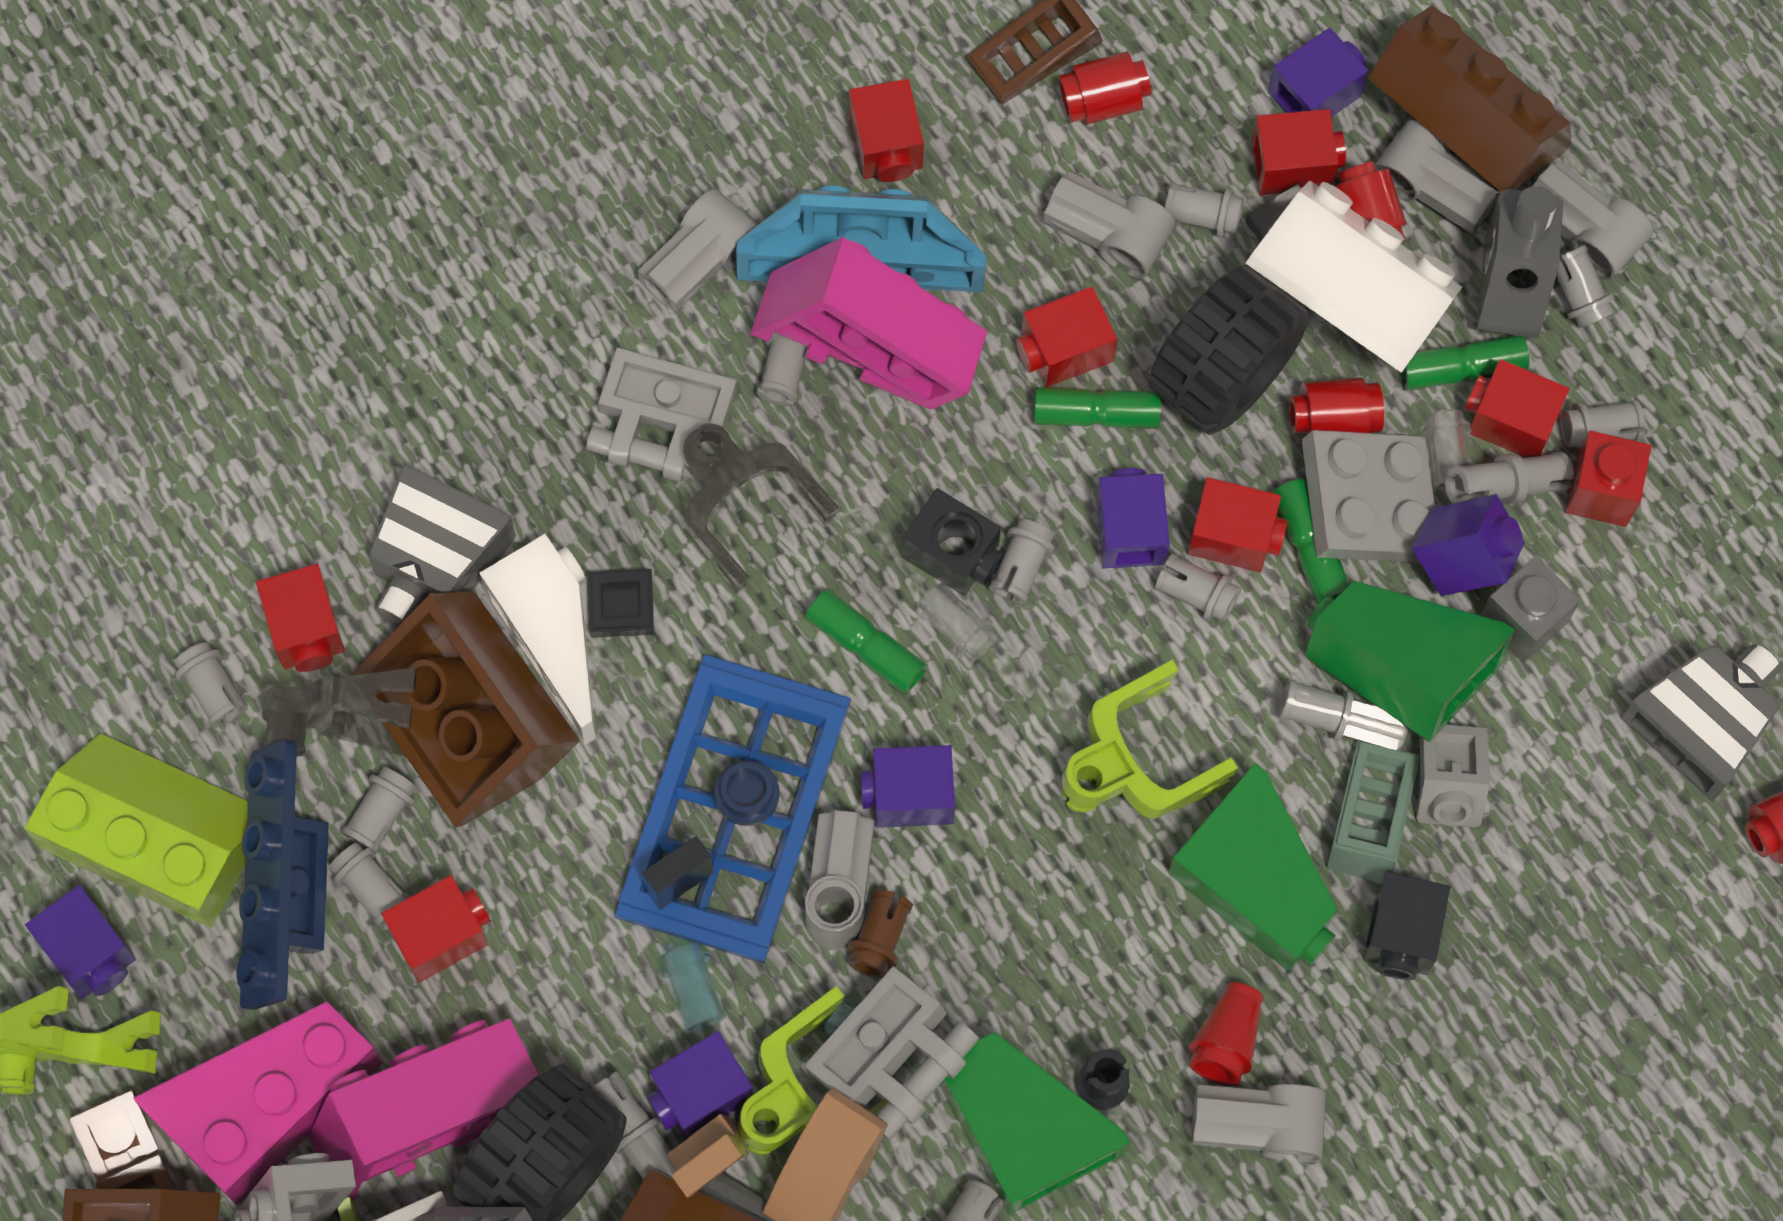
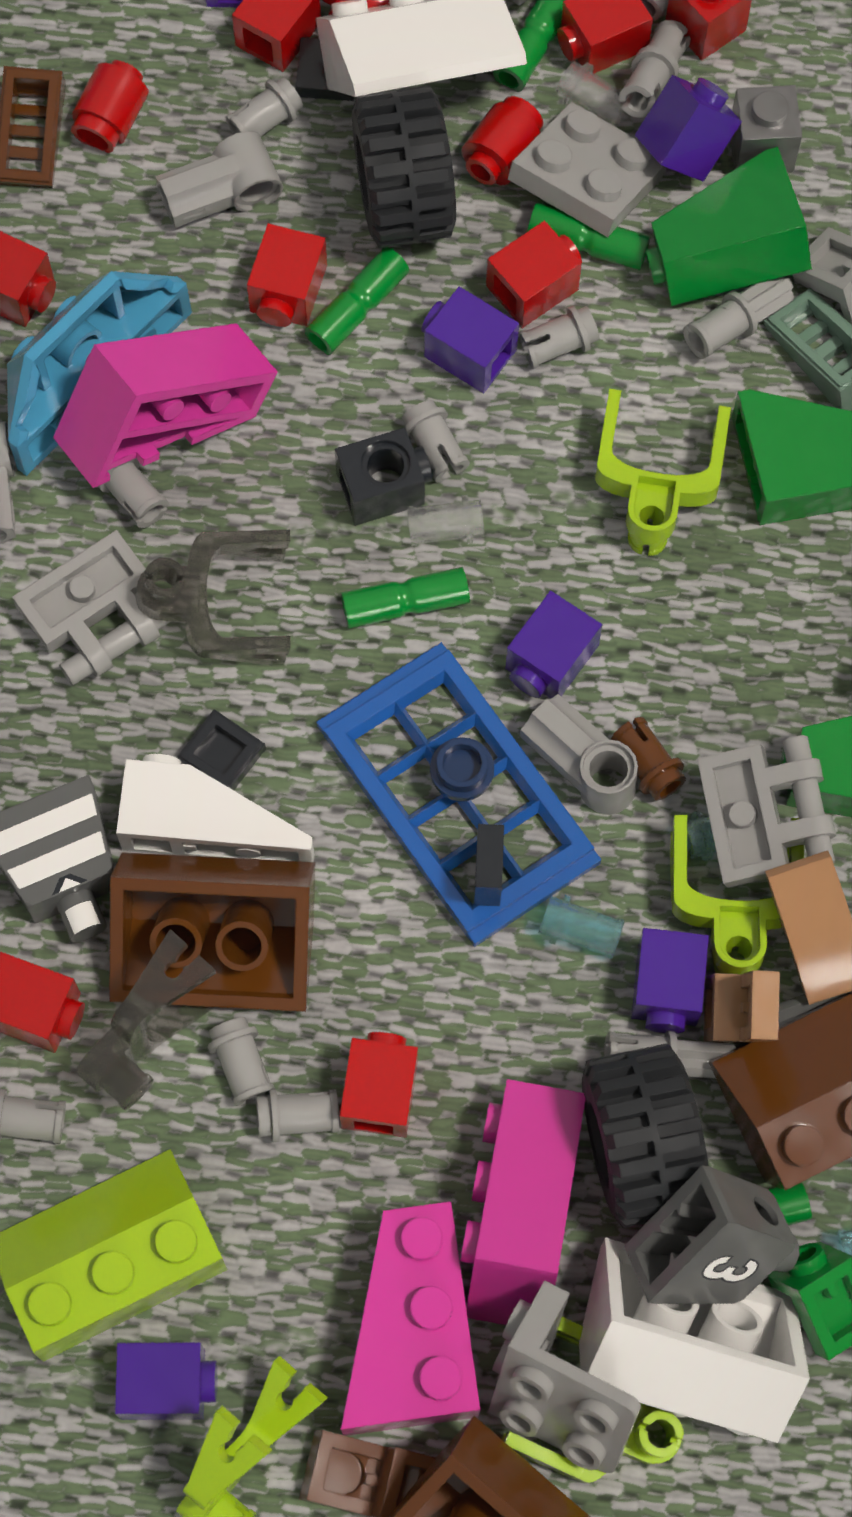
camera: 50 degrees left, 0 degrees up
(283, 878) = (240, 1178): dark blue bracket -> none

